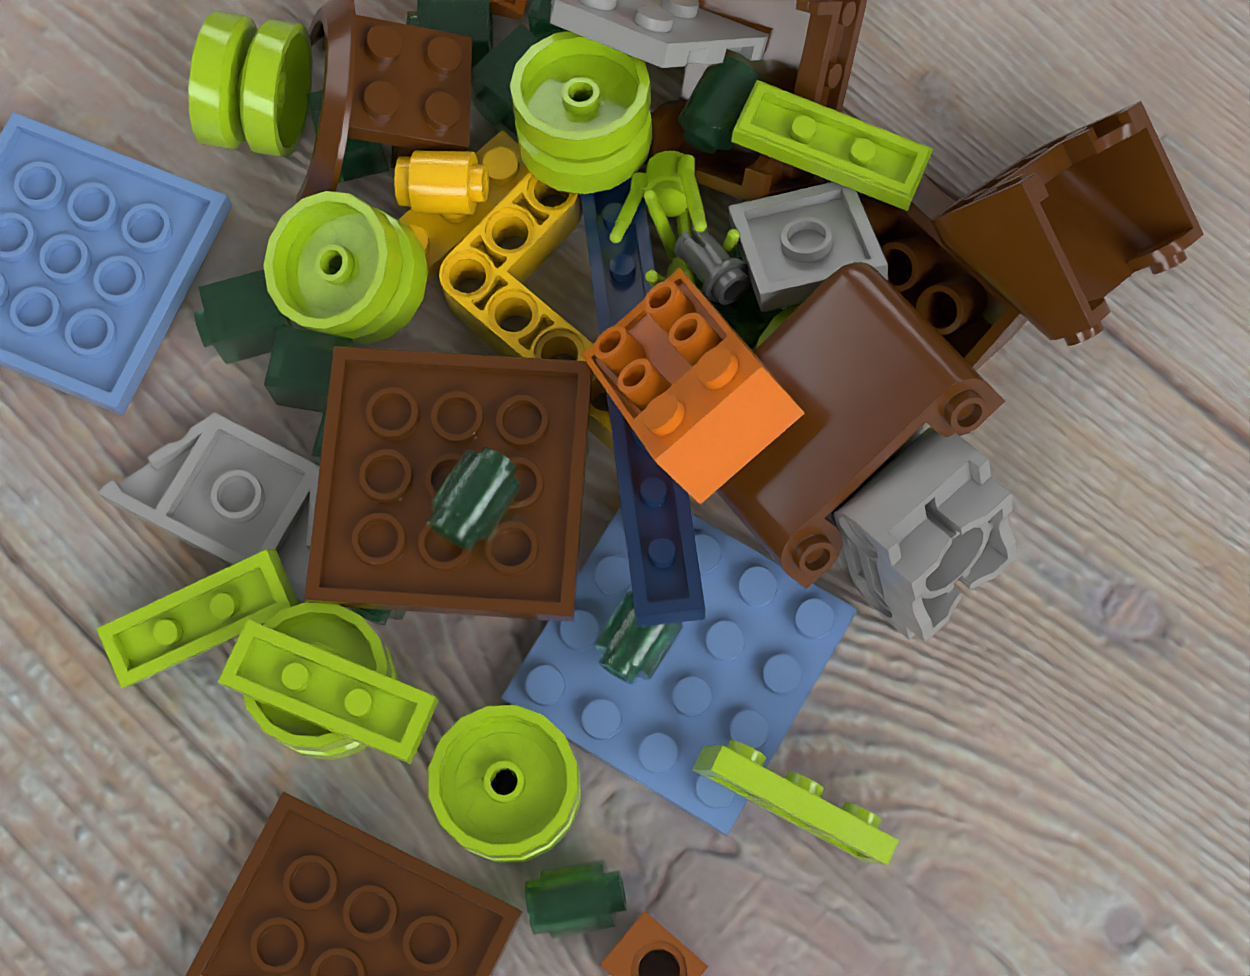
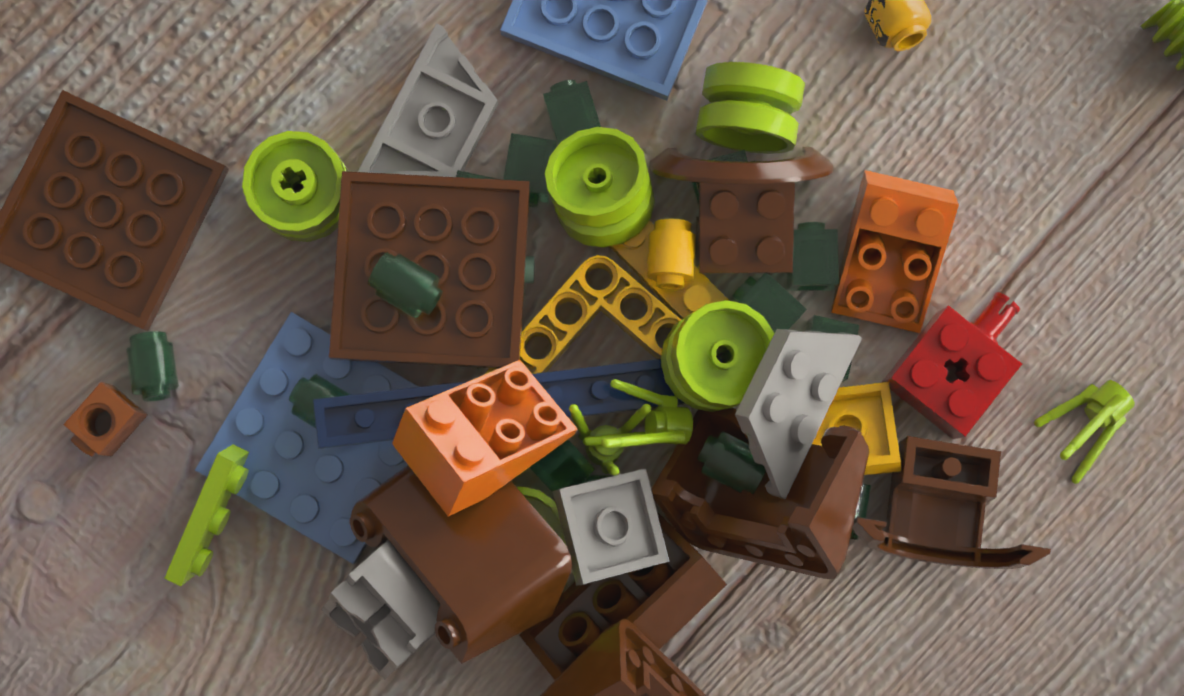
camera: 85 degrees right, 10 degrees up
(196, 617) = (344, 100): lime plate -> none
(328, 691) = (272, 191): lime plate -> none
(471, 765) = (200, 301): lime wheel -> none
(721, 276) = (593, 458): dark grey pin -> none
(831, 145) = (690, 546): lime tile -> none

